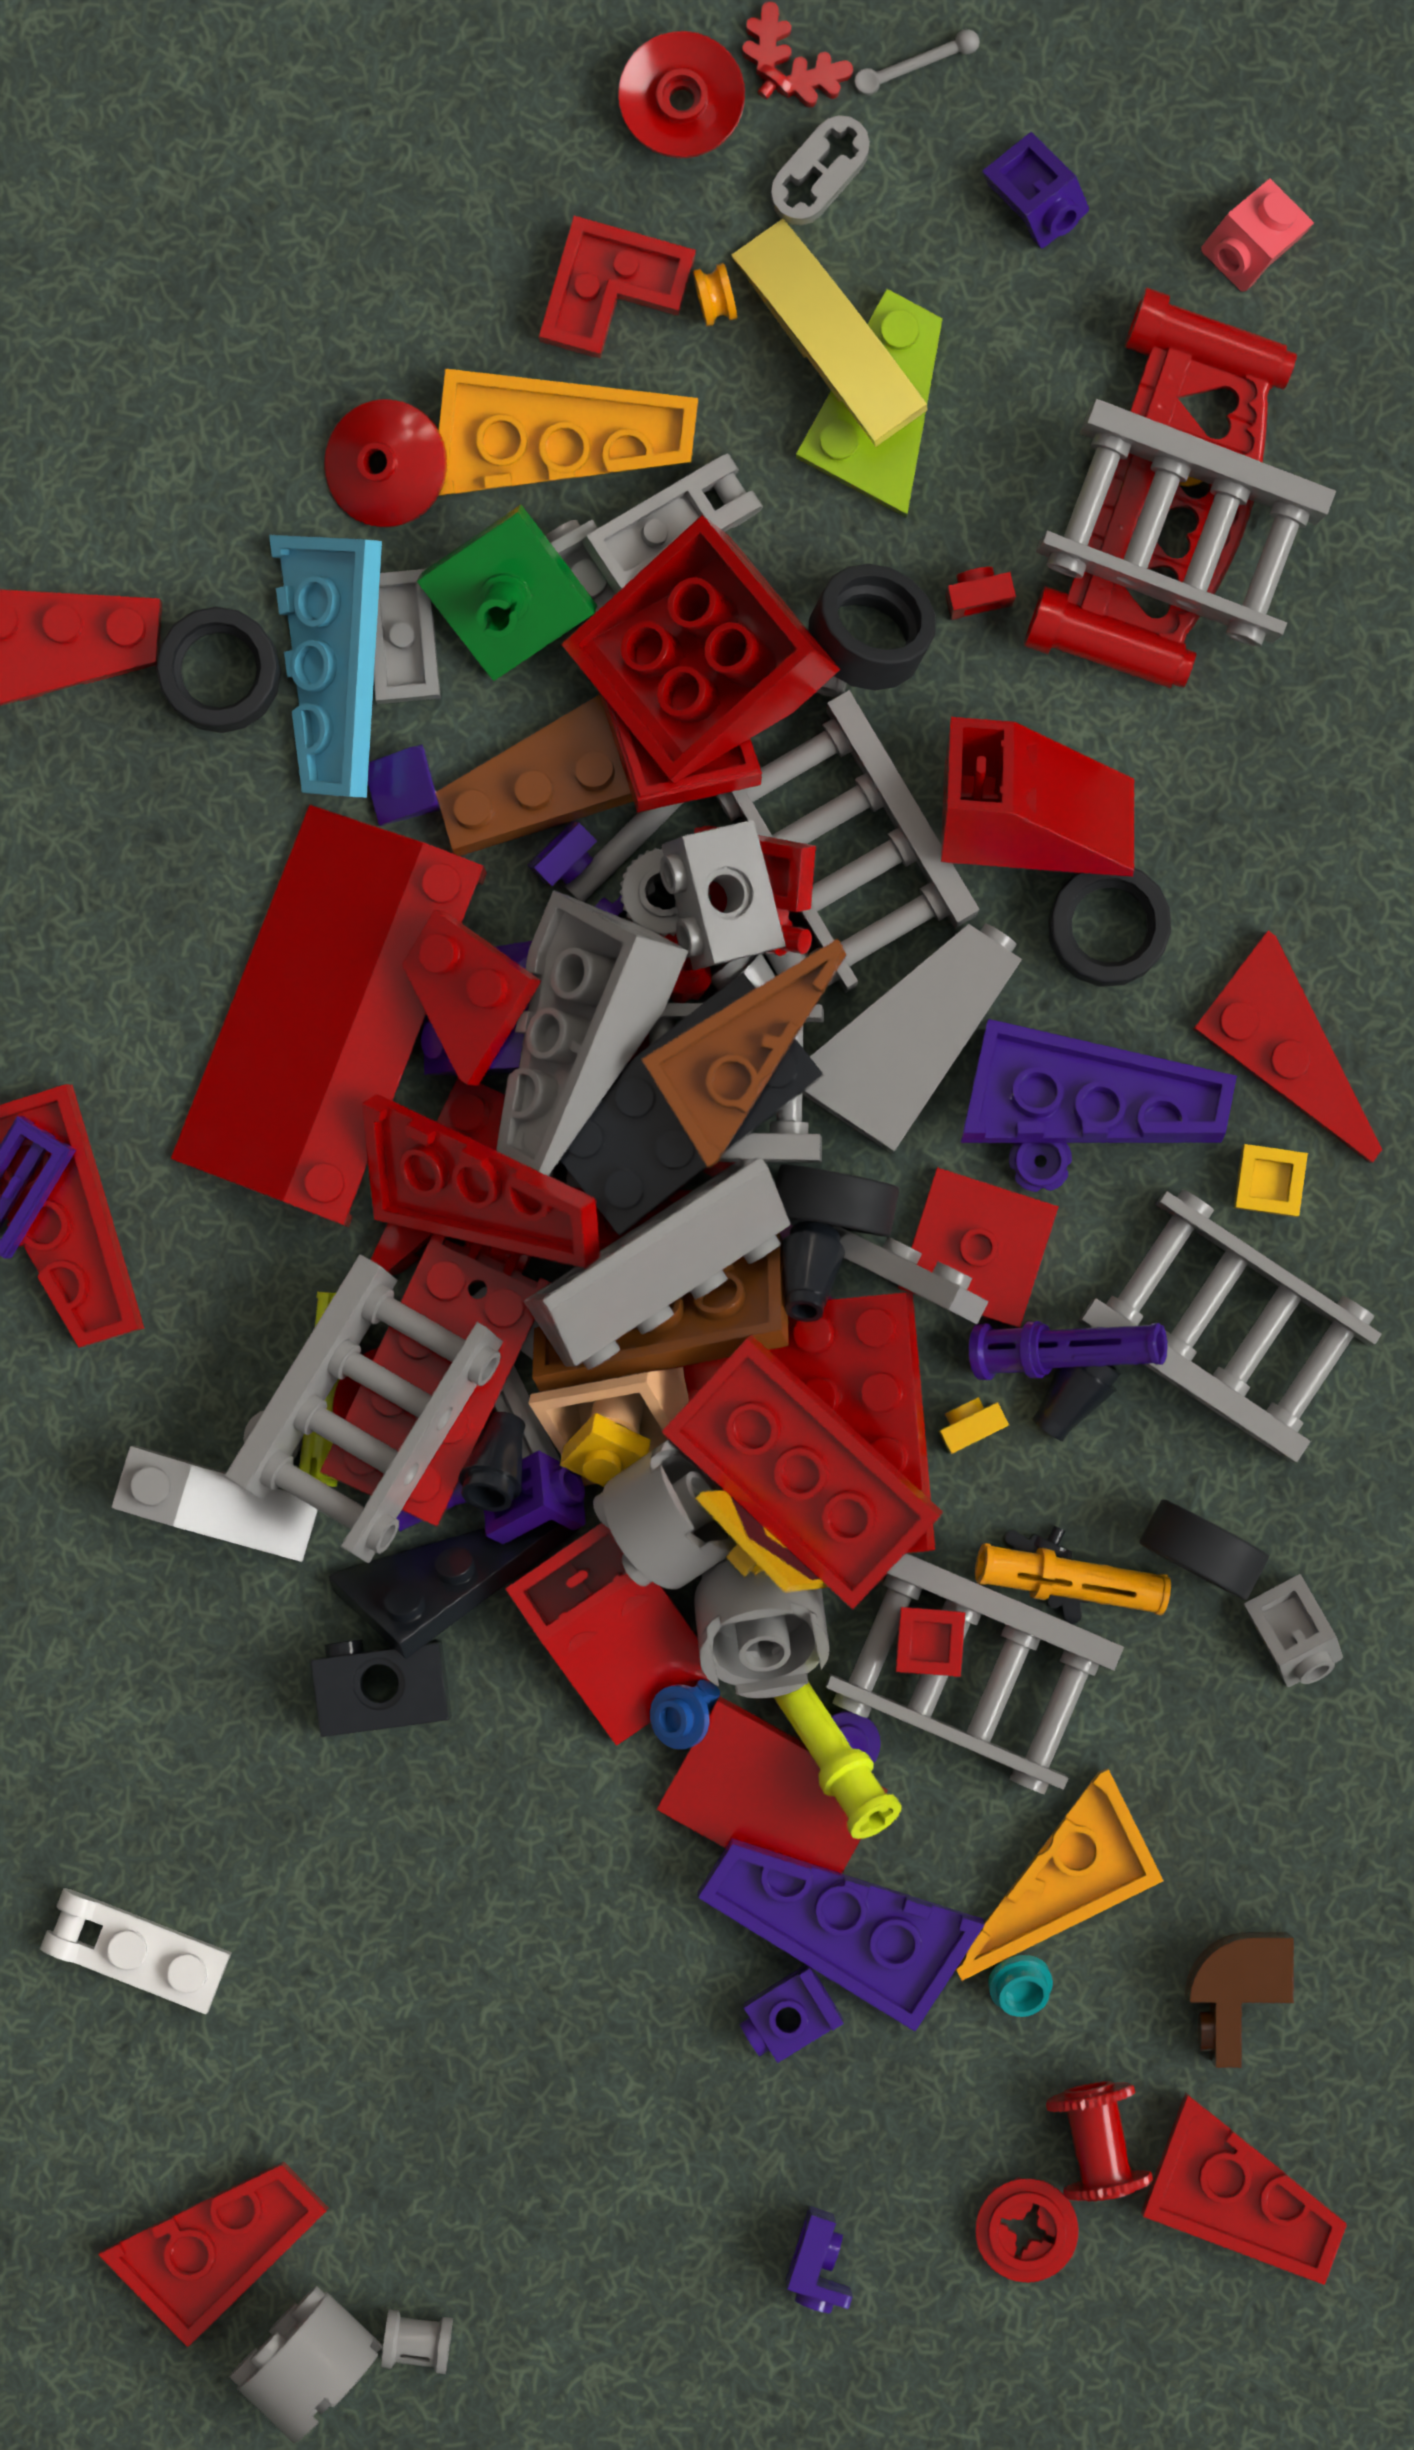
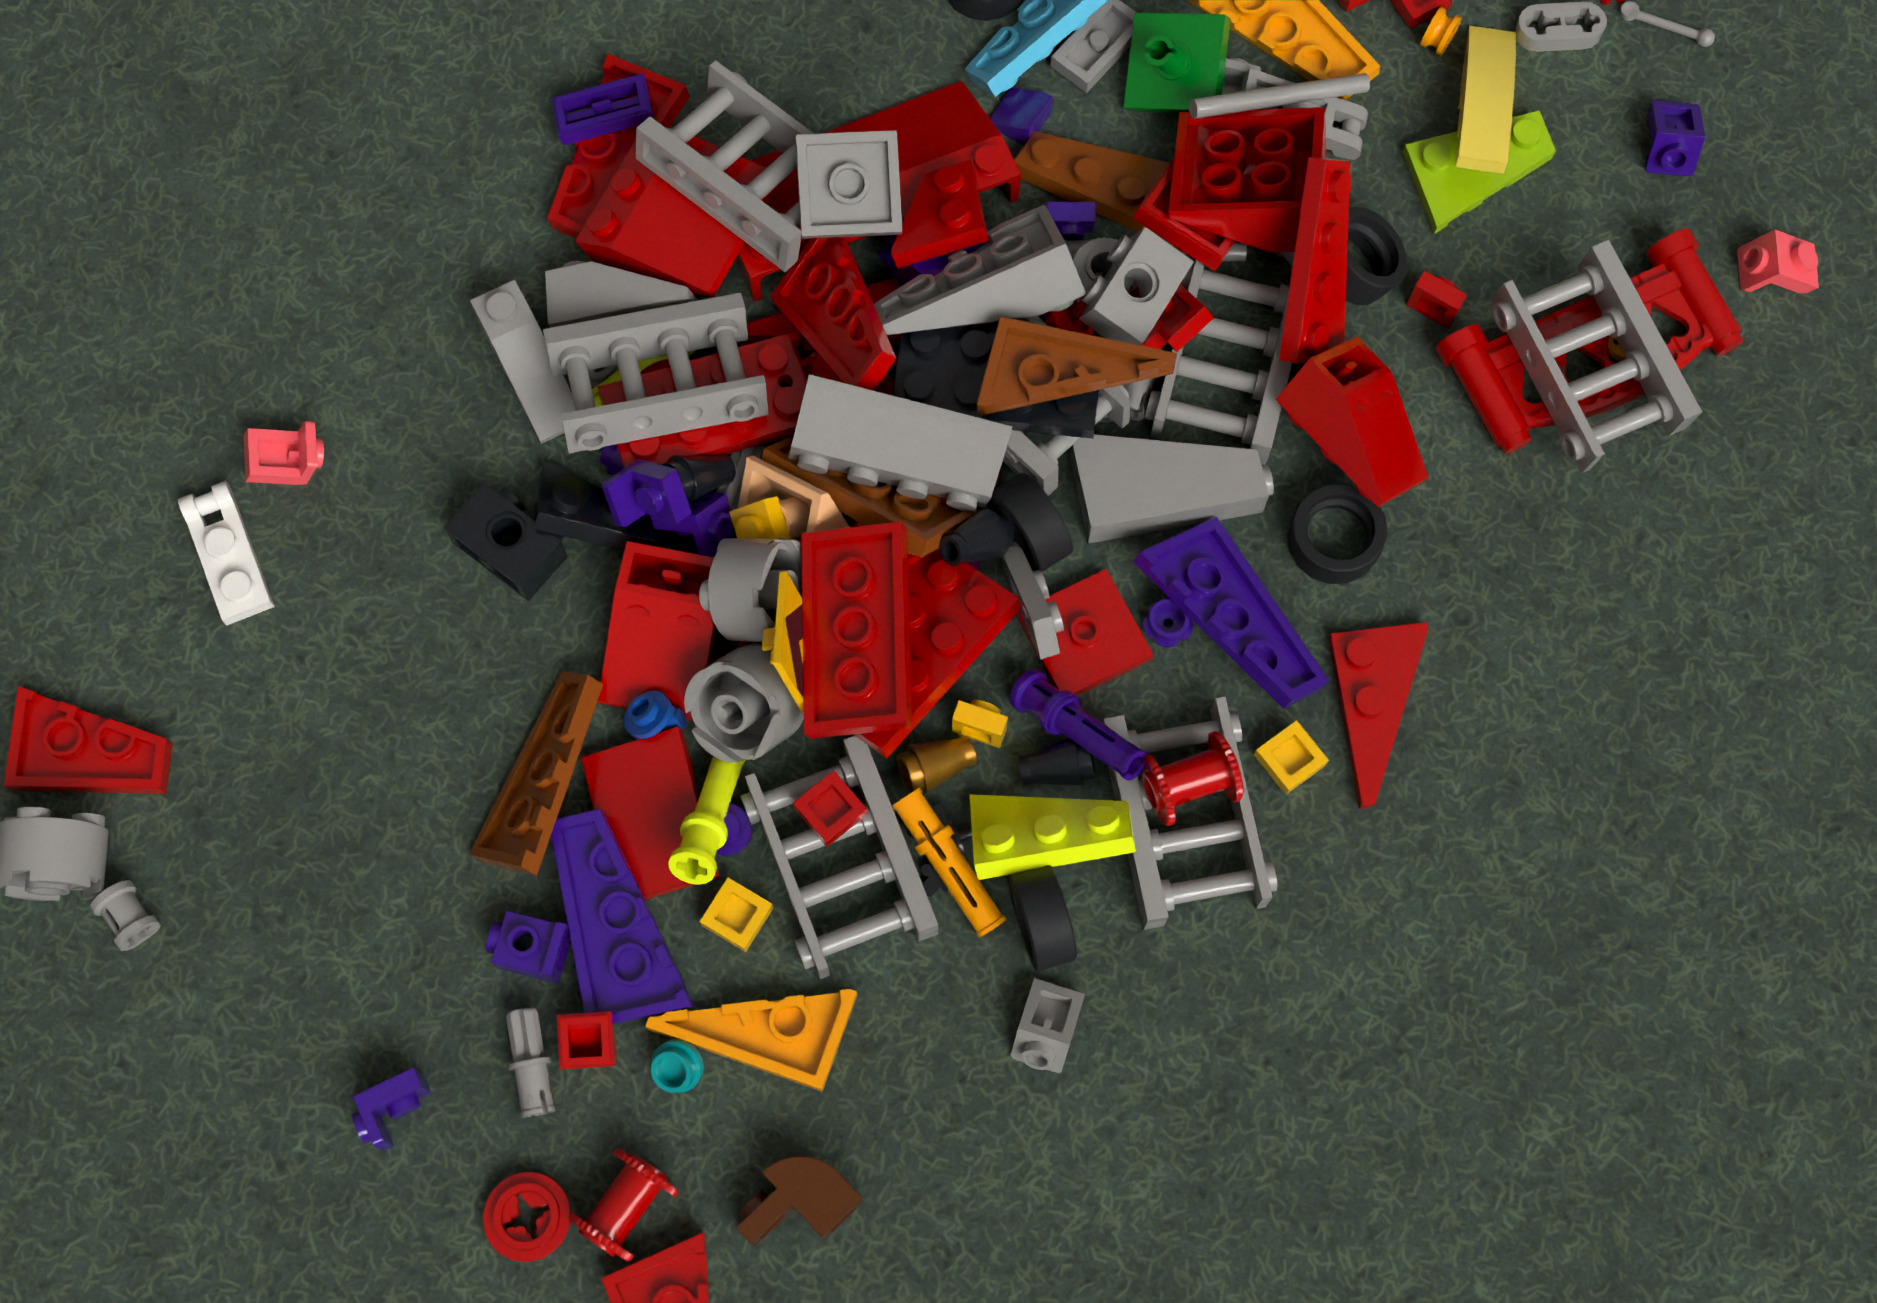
camera: 40 degrees right, 15 degrees down
(90, 1815) = (282, 455): none -> coral bracket
(206, 1225) = (659, 231): none -> red slope
(217, 1380) = (597, 291): none -> light grey slope
(278, 1176) = (703, 177): none -> light grey fence
(365, 1063) = (848, 184): none -> light grey plate
(471, 1524) = (647, 490): none -> dark purple bracket
(643, 538) = (1279, 95): none -> light grey bar
(651, 1880) = (534, 791): none -> dark orange wing
(870, 705) = (1319, 267): none -> red wing
(895, 2108) = (529, 1063): none -> light grey axle
(927, 2043) = (586, 1040): none -> red slope
(936, 1807) = (736, 914): none -> yellow plate
(968, 1500) = (934, 762): none -> pearl gold cone
(1132, 1476) = (1039, 832): none -> neon yellow wing
(1216, 1301) = (1192, 778): none -> red hose

